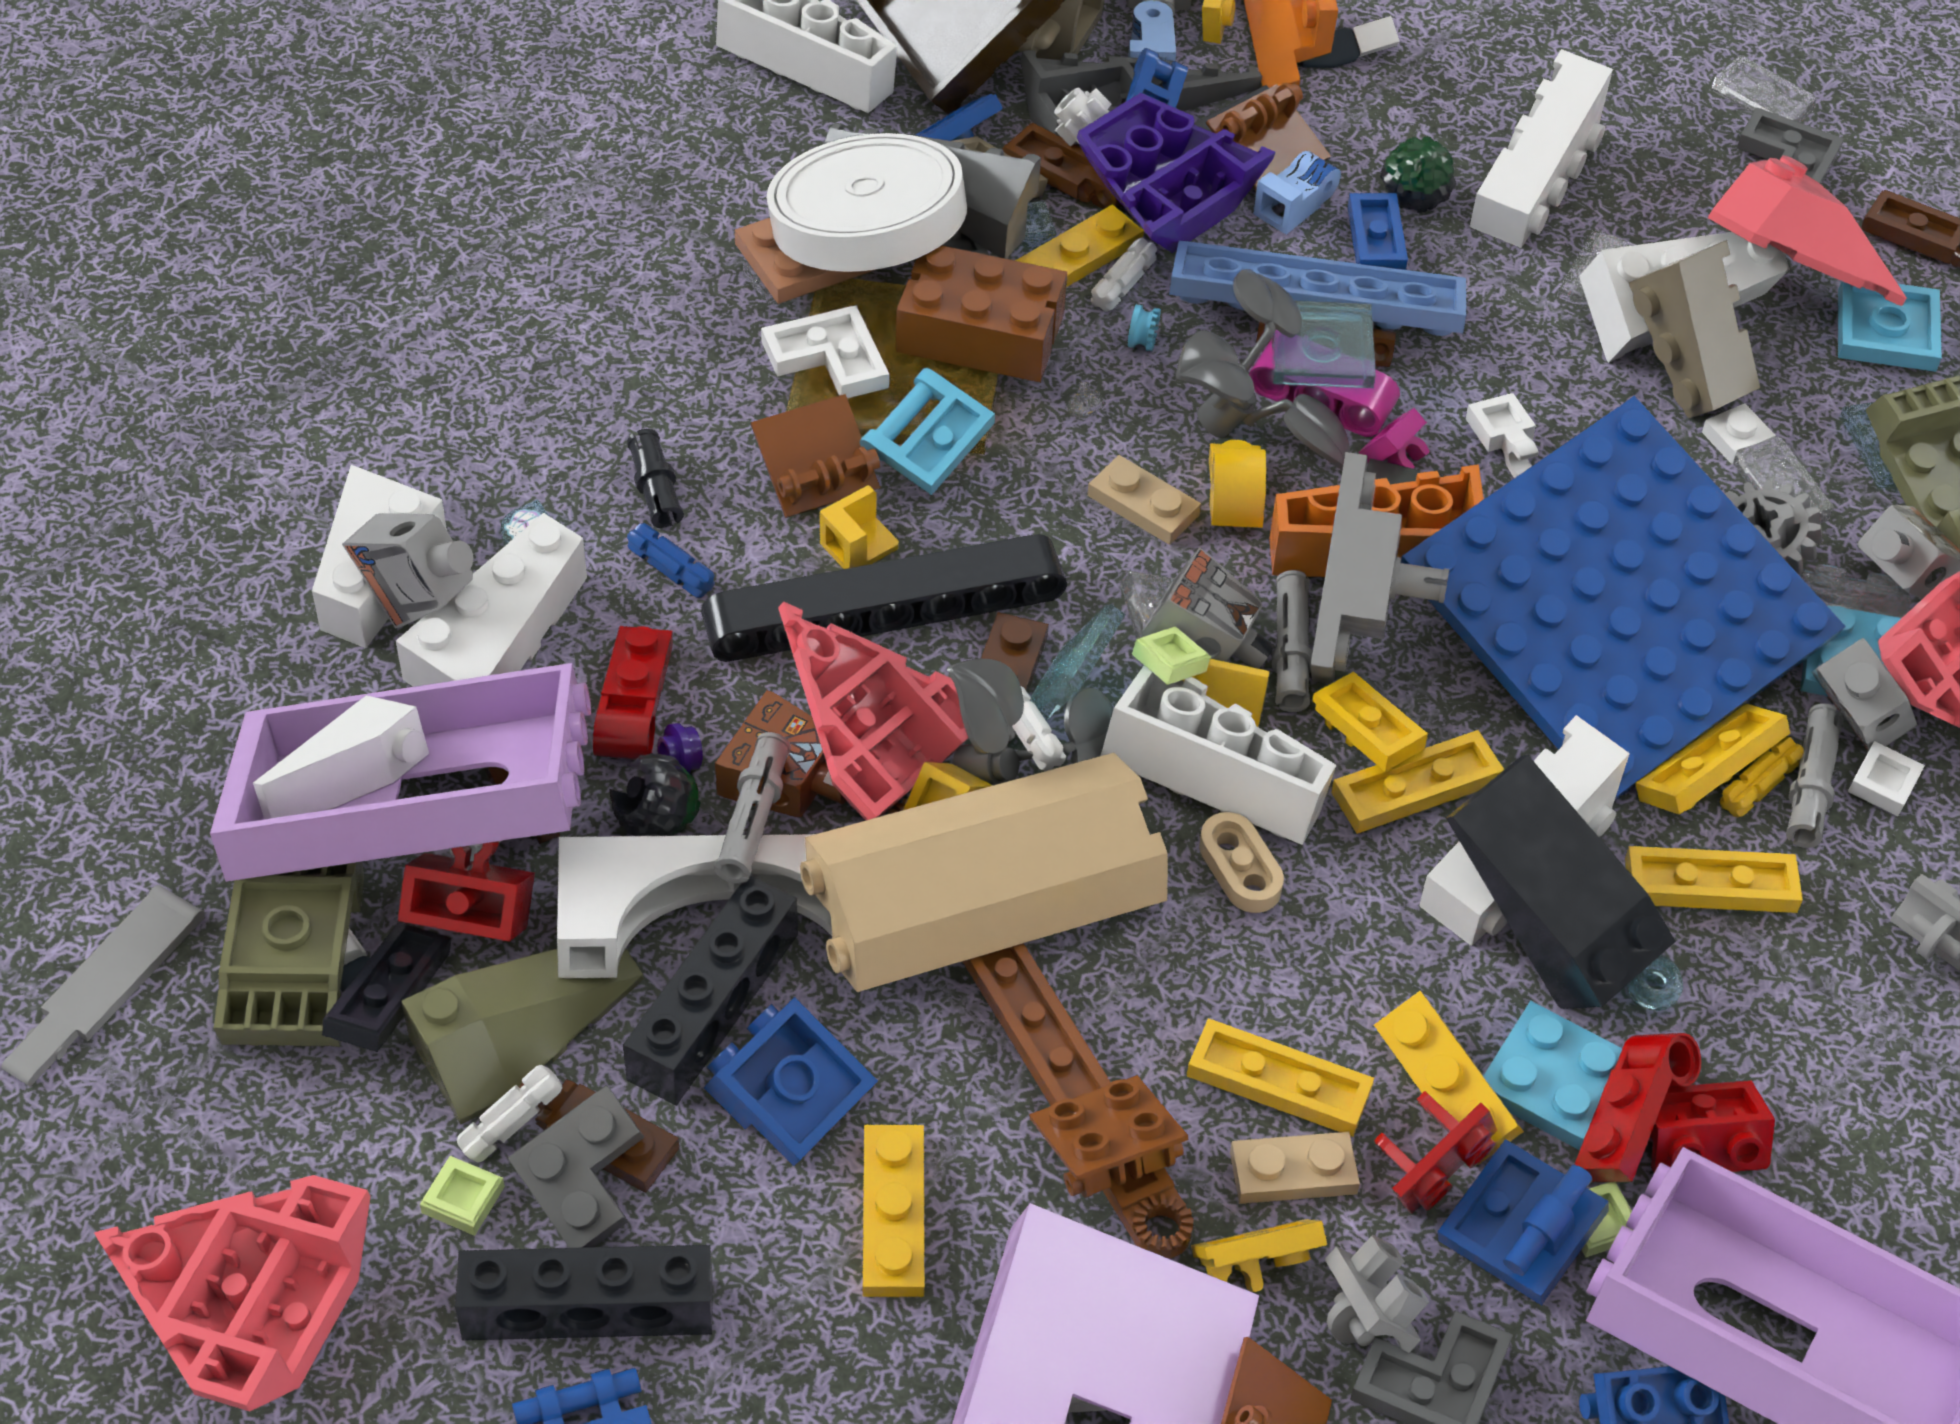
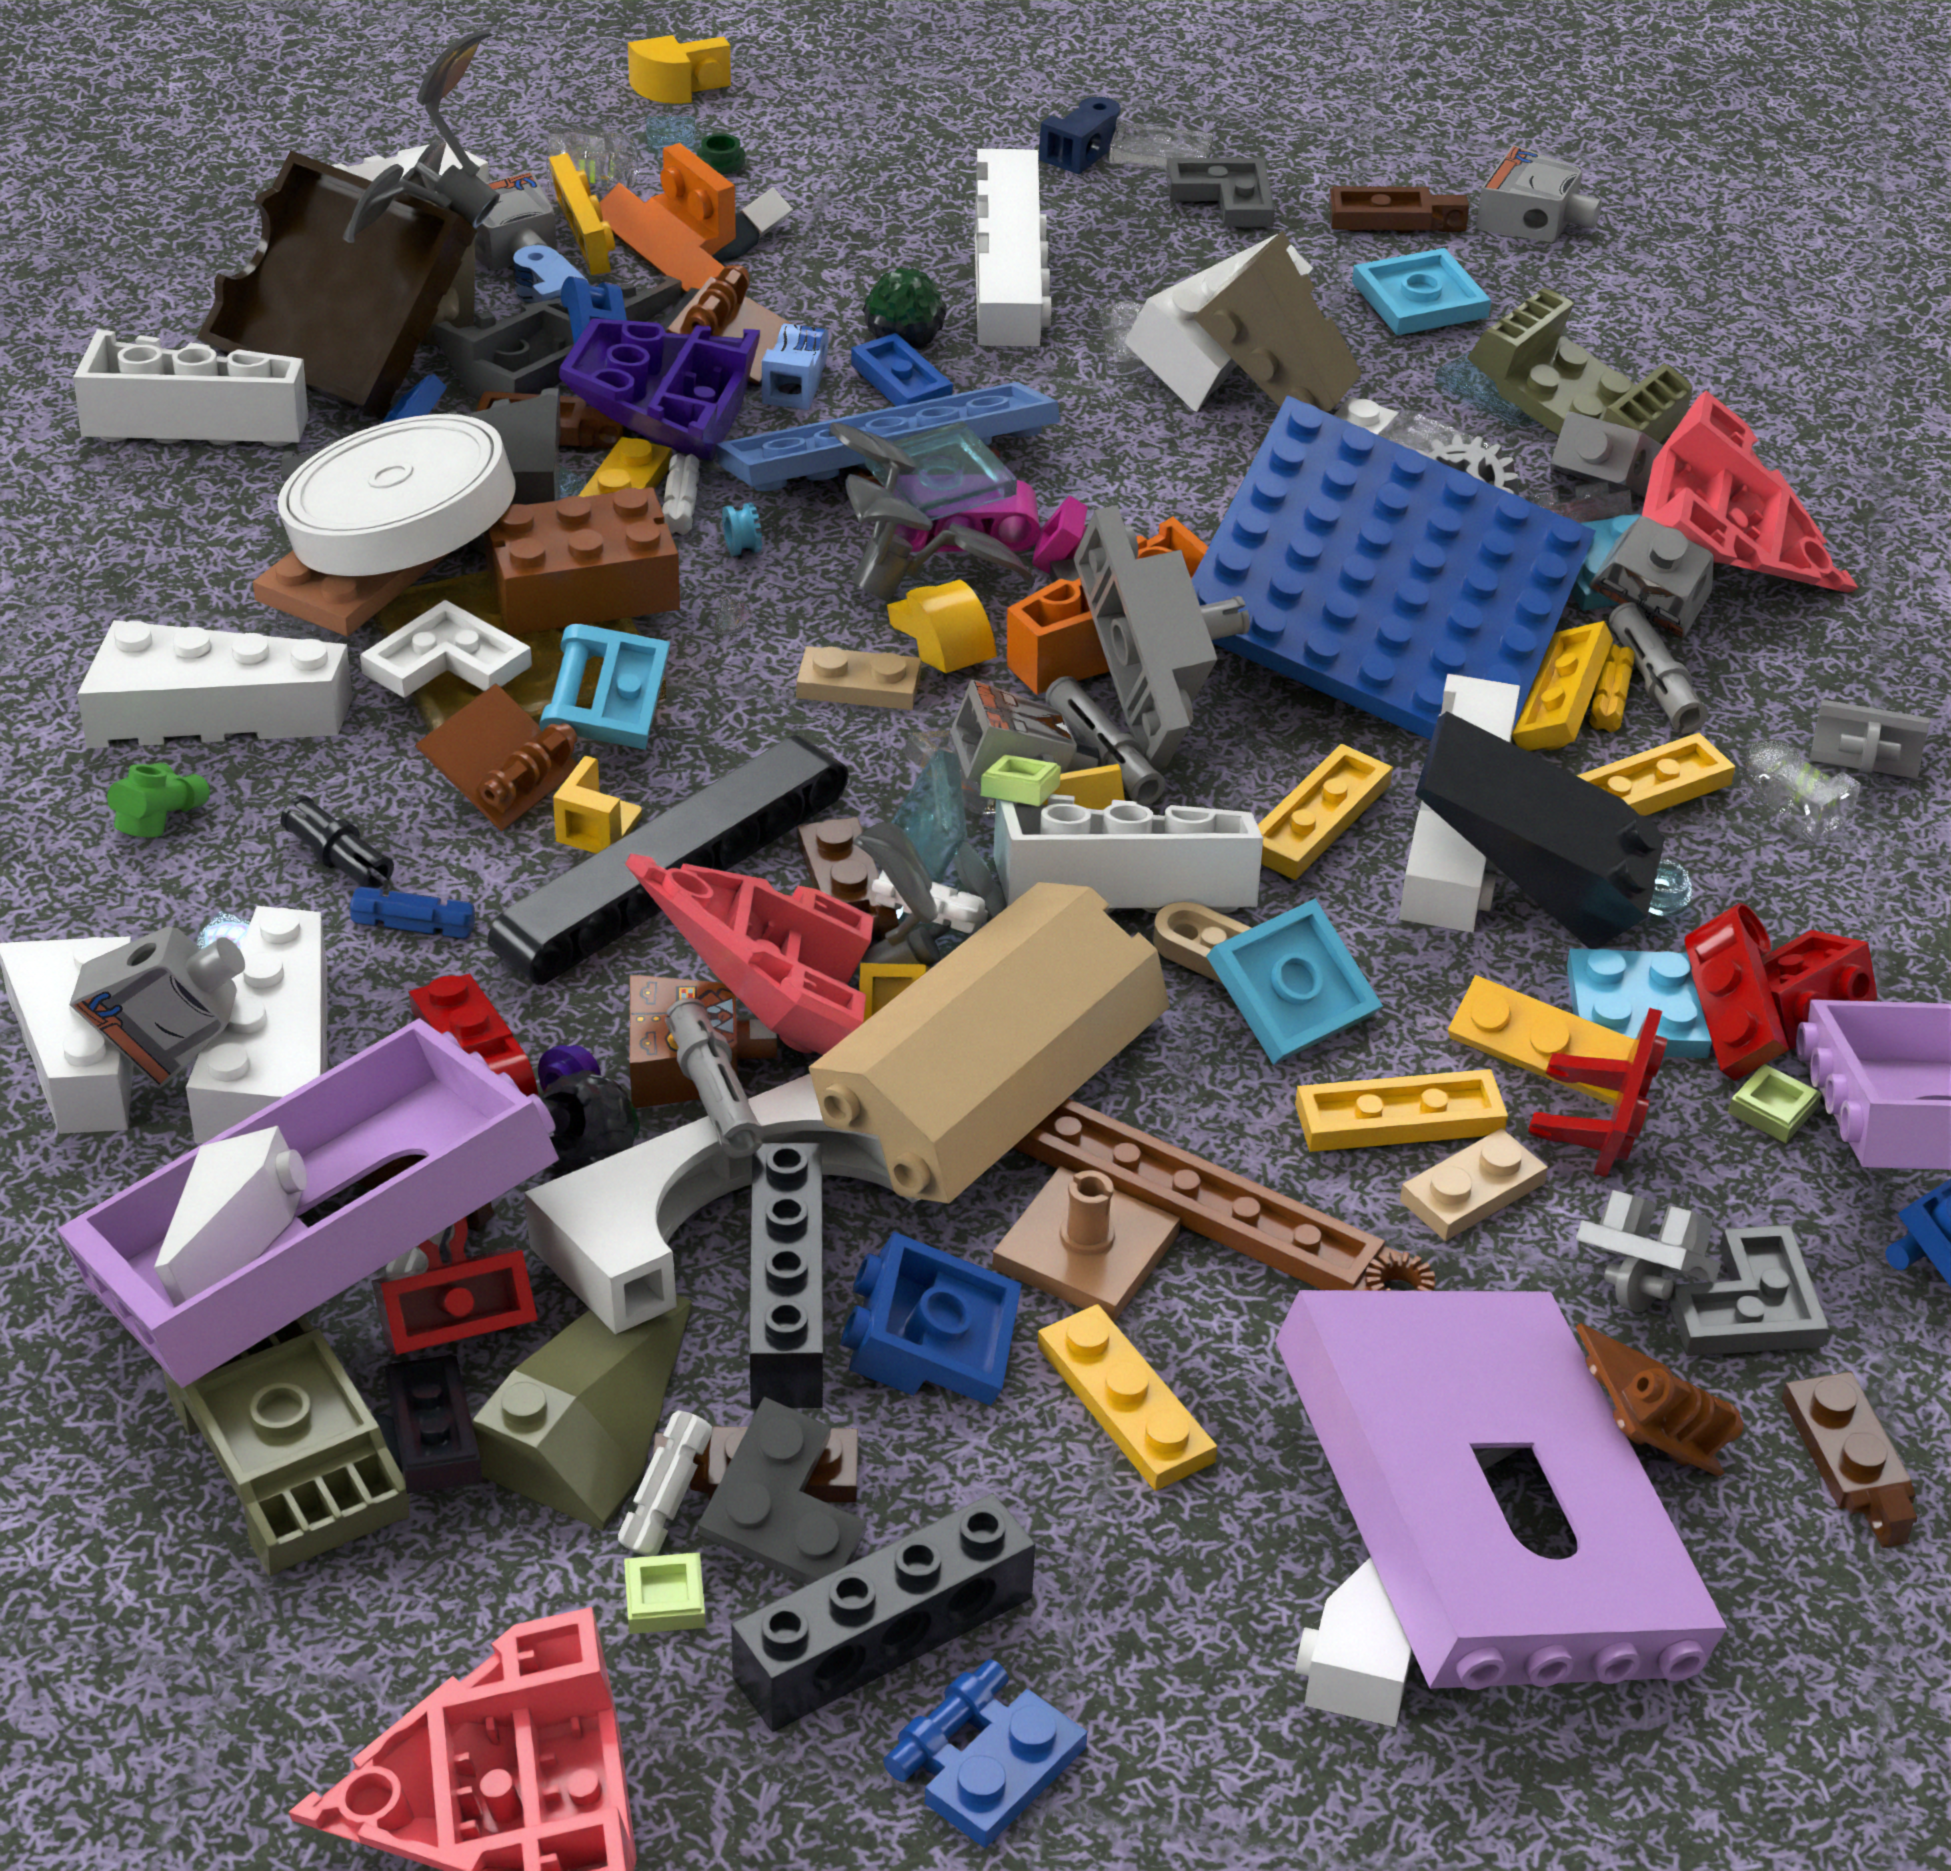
camera: 30 degrees left, 10 degrees down
(105, 981) = (78, 1576): light grey piece -> none
(551, 380) = (149, 794): none -> bright green plate
(651, 304) = (212, 685): none -> white wedge
(958, 1069) = (1086, 1242): none -> medium nougat tile
(1078, 111) = (541, 359): white gear -> none
(1110, 1129) = (1301, 1217): dark orange hinge -> none
(1272, 926) = (1294, 981): none -> medium azure plate
(1284, 1243) = (1524, 1246): yellow plate -> none
(1369, 721) = (1239, 773): yellow plate -> none
(1505, 425) = (1154, 490): white plate -> none
(1524, 1220) = (1722, 1125): blue plate -> none
(1700, 57) = (1079, 137): none -> dark blue leg
(1800, 217) = (1312, 220): coral wedge -> none
(1841, 949) = (1797, 792): none -> clear leg
(1886, 778) = (1719, 645): white plate -> none

